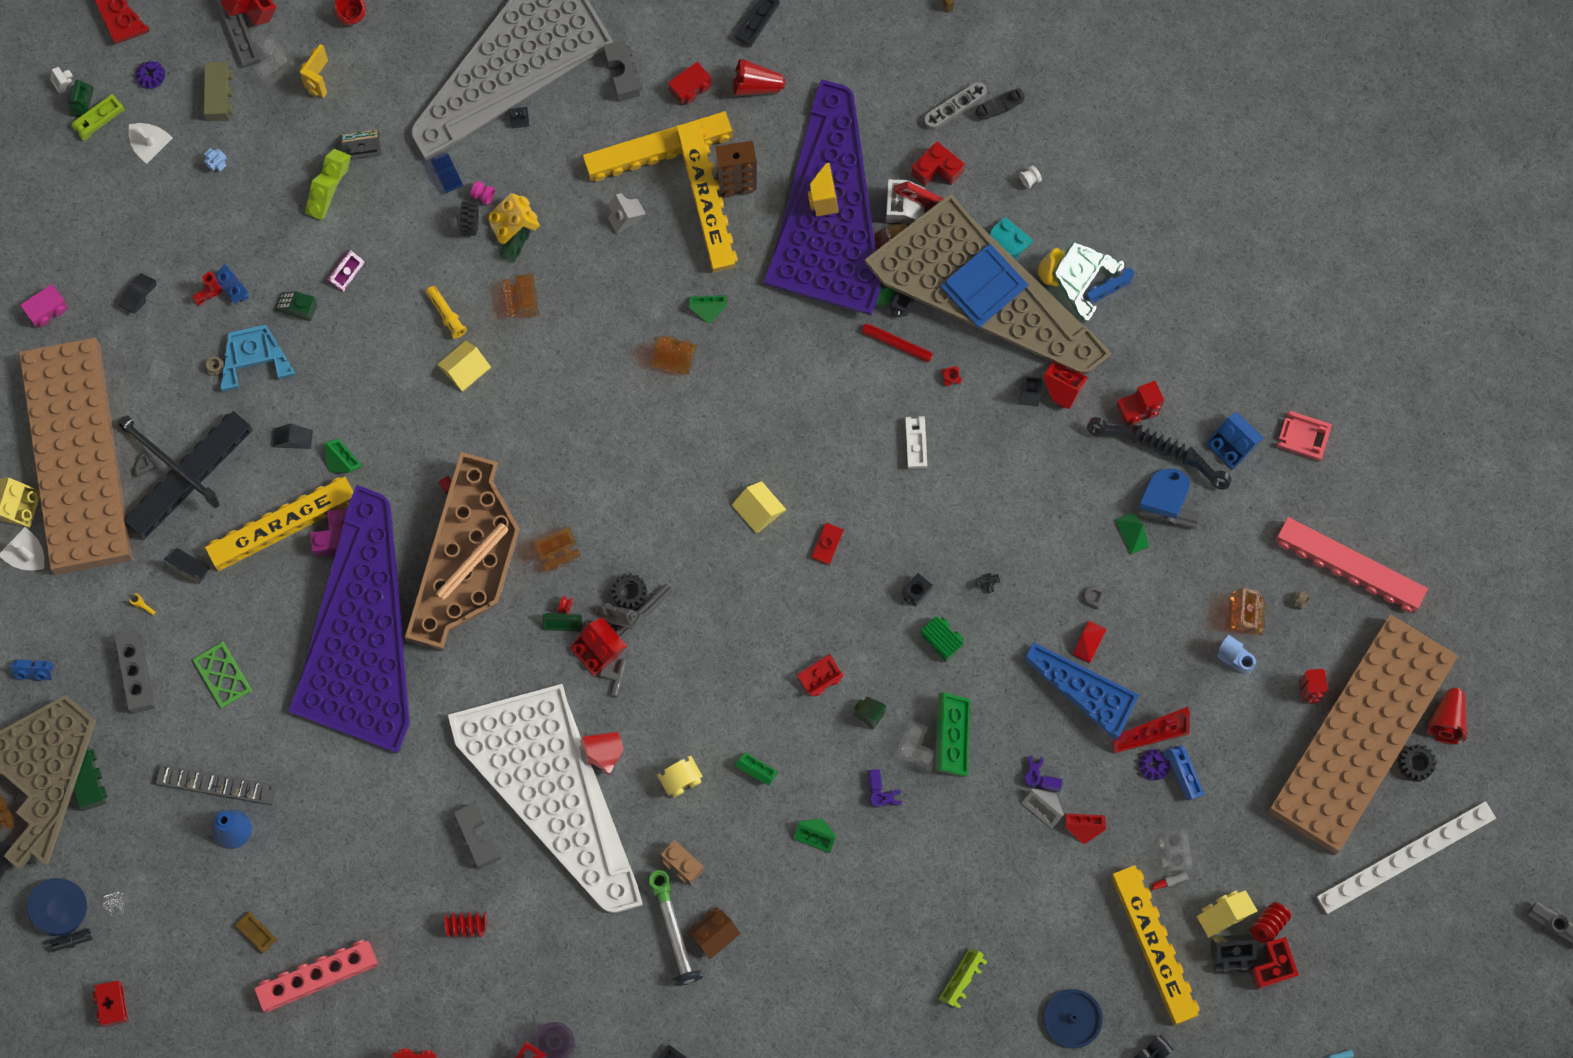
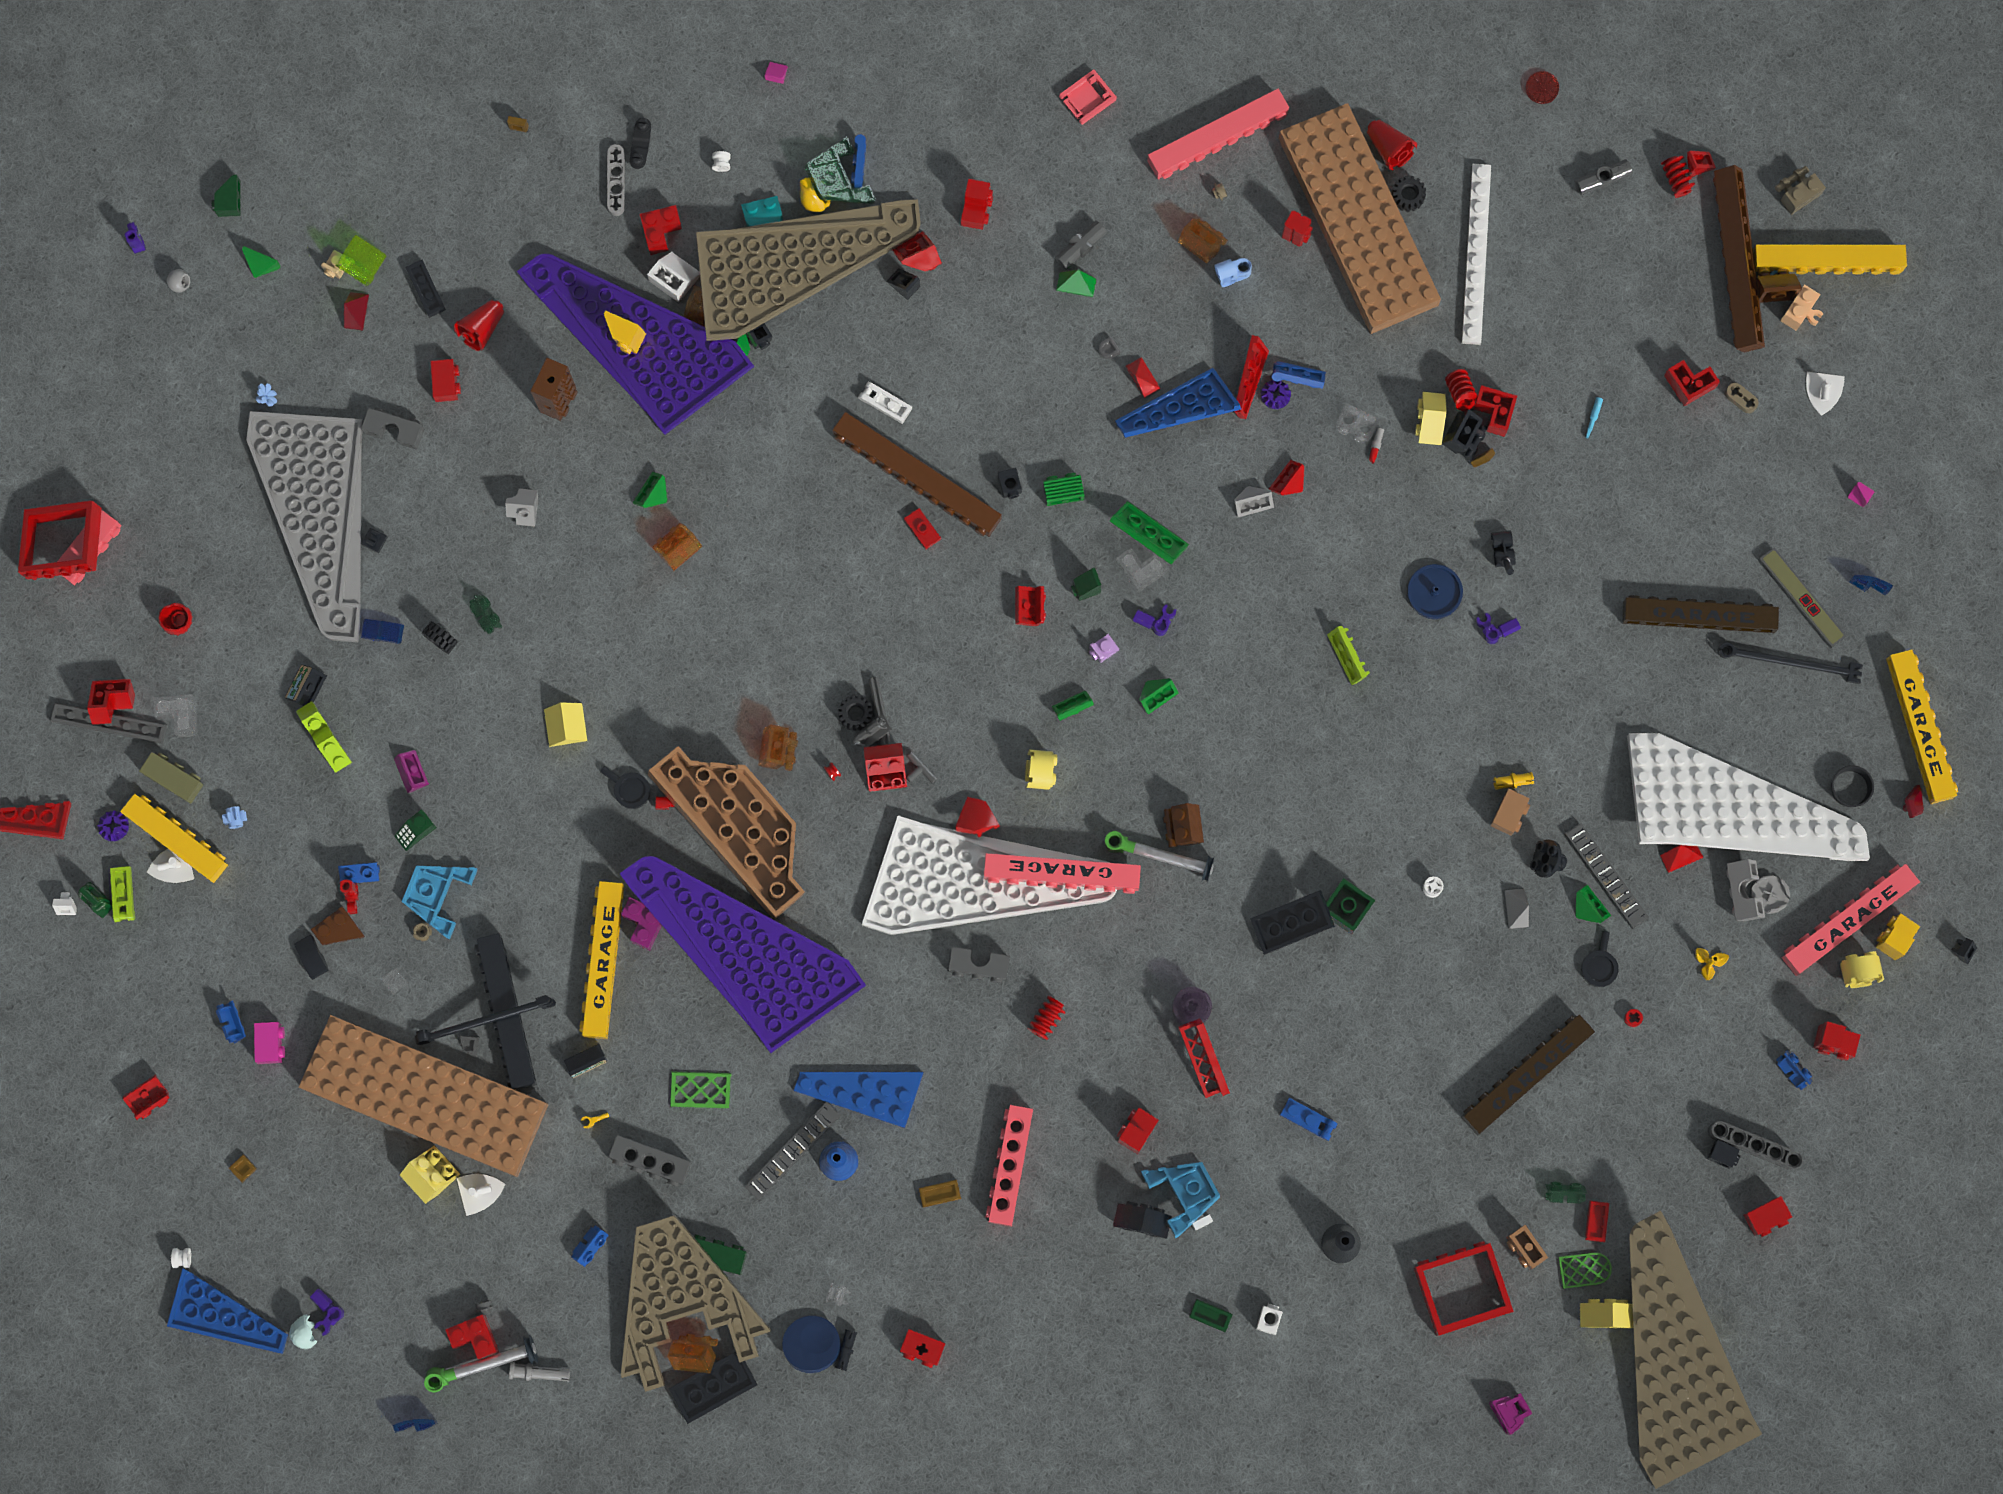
camera: 55 degrees left, 5 degrees up
(49, 260) = (233, 1030): none -> blue hinge
(169, 126) = (174, 838): none -> yellow brick
(175, 298) = (337, 928): none -> reddish brown wing
(292, 437) = (531, 905): black slope -> none
(308, 822) = (874, 1094): none -> blue wing
(310, 70) = (221, 691): yellow bracket -> none
(340, 458) = (578, 877): green slope -> none
(442, 452) = (630, 789): none -> black piece
(450, 319) = (517, 709): yellow pin -> none
(472, 561) = (749, 820): light nougat axle -> none
(480, 191) = (422, 613): dark pink wheel -> none
(511, 216) = (462, 602): yellow bracket -> none
(526, 294) = (540, 633): clear orange brick -> none
(562, 622) = (844, 782): dark green tile -> none
(603, 857) = (1062, 872): none -> coral brick
(651, 148) = (482, 443): yellow brick -> none
(682, 862) = (1111, 813): medium nougat brick -> none
(705, 196) = (557, 431): yellow brick -> none
(758, 506) = (853, 563): light yellow slope -> none
(825, 762) = (1103, 648): none -> lavender bracket
(870, 509) = (916, 474): none -> reddish brown brick
(897, 342) = (789, 361): red axle -> none
(917, 194) = (679, 258): red tile -> none
(951, 371) = (848, 342): red plate -> none
(984, 285) = (793, 259): blue piece -> none
(988, 581) = (1041, 422): black plant -> none
(1034, 779) = (1225, 494): dark purple bar -> none
(1139, 171) = (776, 72): none -> dark pink slope
(1155, 946) = (1419, 490): yellow brick -> none
(1166, 495) = (1065, 236): blue tile -> none
(1190, 456) = (1044, 196): black piece -> none
(1224, 983) = (1483, 458): none -> pearl gold tile
(1234, 440) = (1055, 153): blue slope -> none

